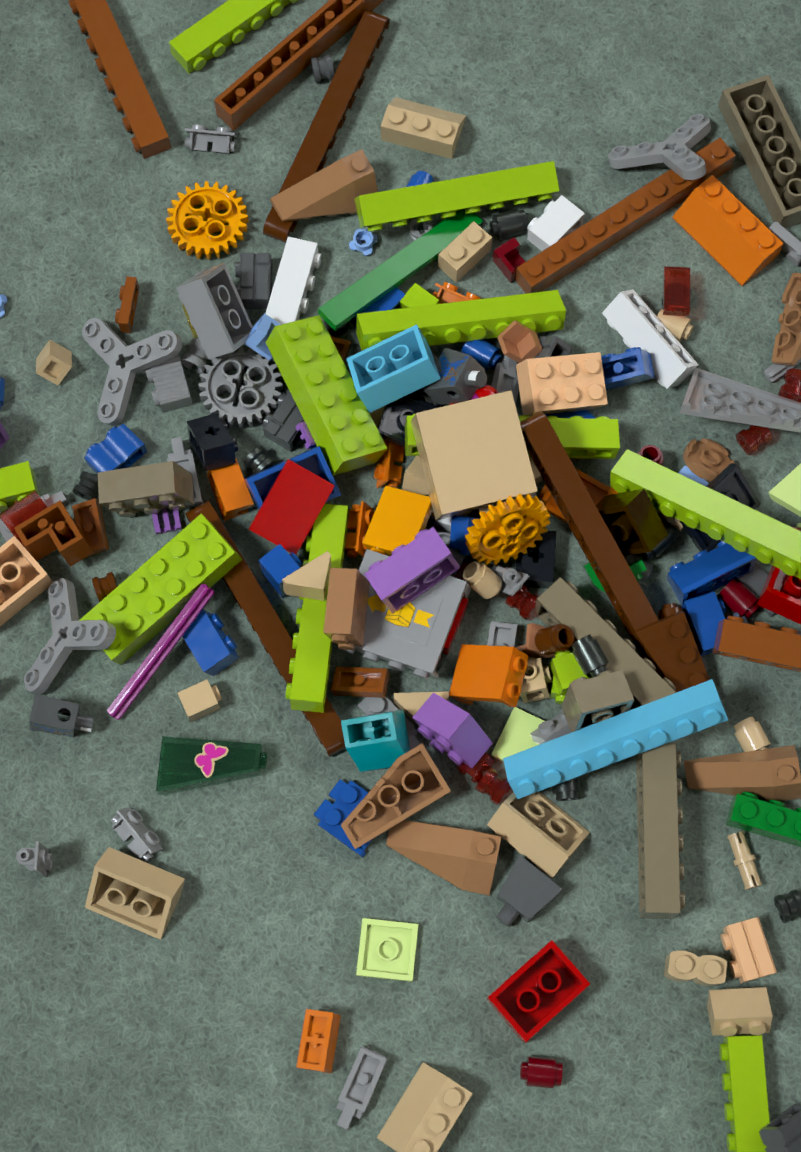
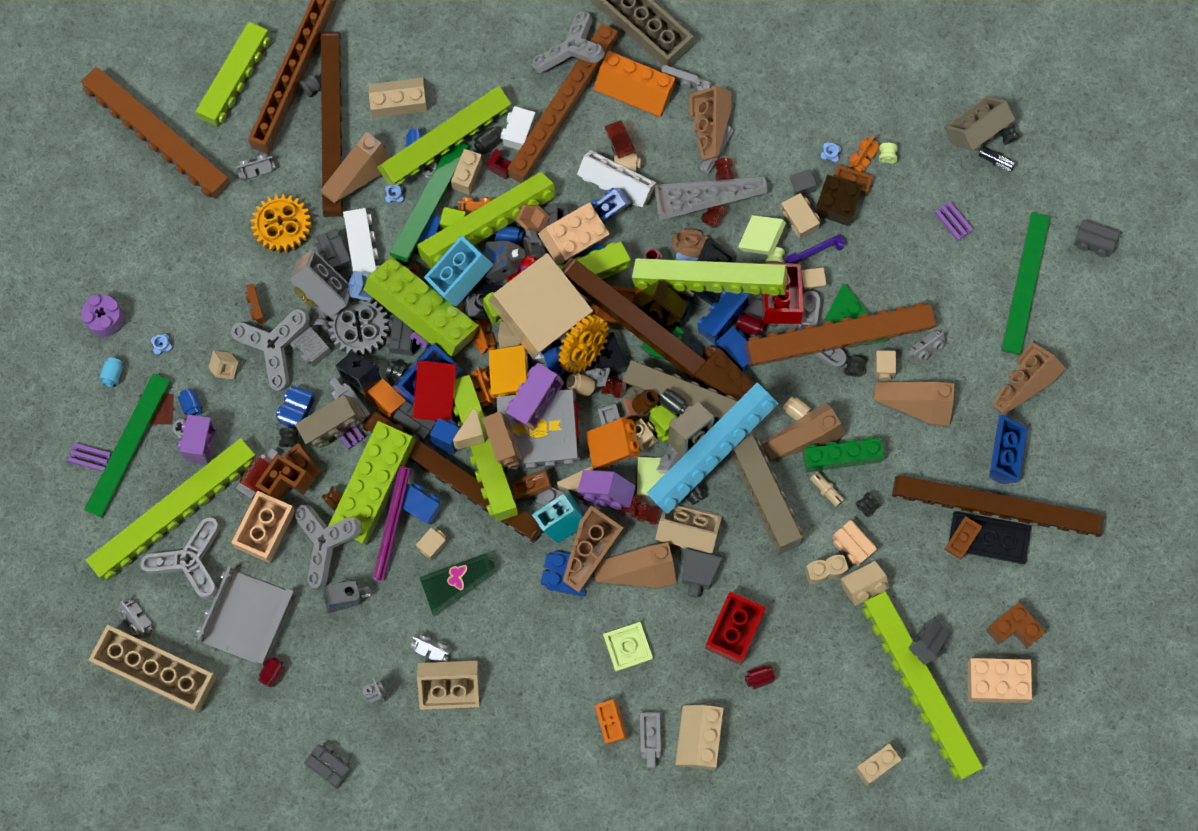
camera: 25 degrees left, 0 degrees up
(252, 544) = (417, 428): none -> dark grey brick

